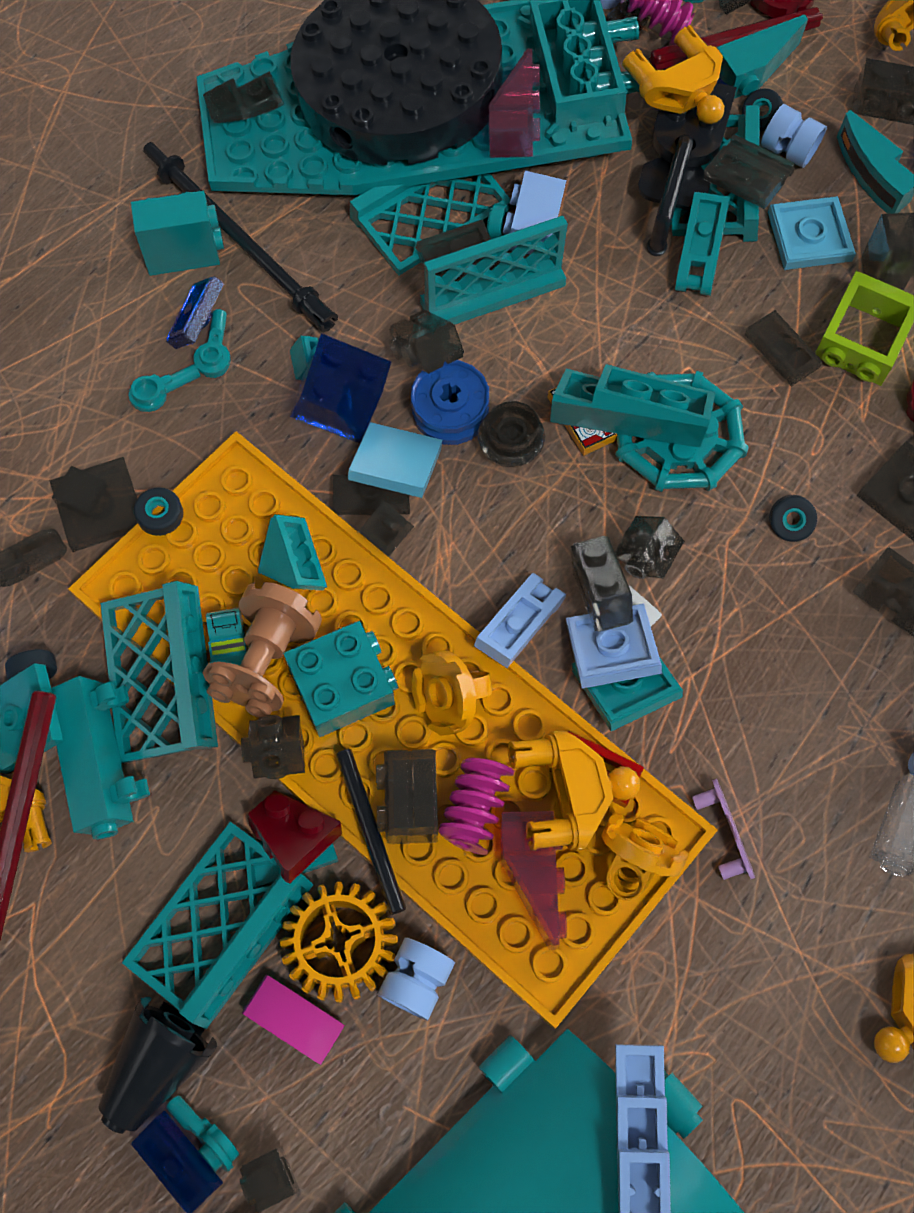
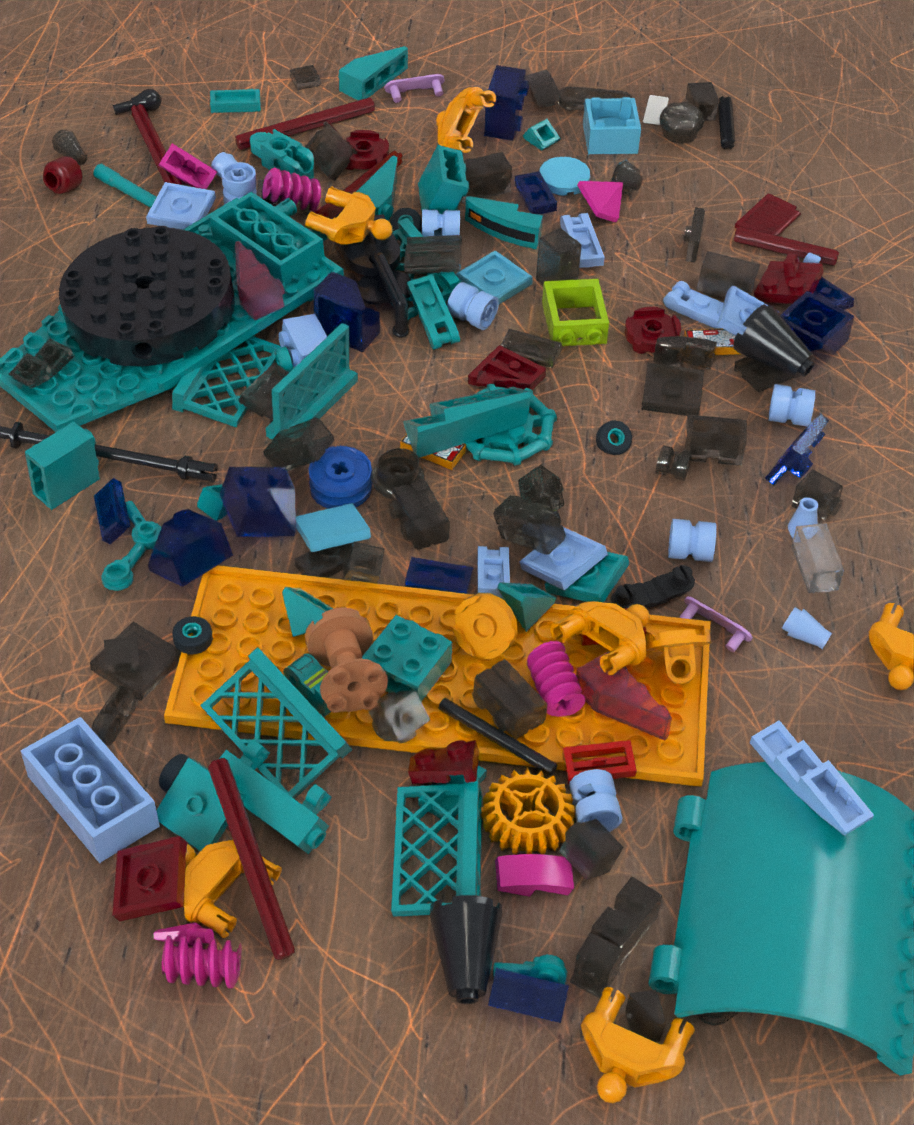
camera: 35 degrees left, 20 degrees down
(225, 404) = (188, 547): none -> clear blue slope
(318, 1158) = (632, 916): none -> clear smoke brick
(367, 1032) = (590, 848): none -> clear smoke brick
(420, 917) = (620, 771): none -> red tile
(463, 587) = (438, 576): none -> clear blue plate
(499, 496) = (419, 514): none -> clear smoke brick
(522, 681) = (526, 602): none -> teal slope
(597, 195) = (340, 301): none -> clear blue slope
(686, 746) = (656, 591): none -> black piece
(732, 364) = (507, 370): none -> dark red wing
(754, 258) = (472, 305): none -> light blue wheel
(777, 710) = (692, 540): none -> light blue wheel
(827, 905) = (806, 628): none -> light blue cone
(834, 78) = (443, 180): none -> teal brick
(839, 601) = (680, 463): none -> clear smoke wheel

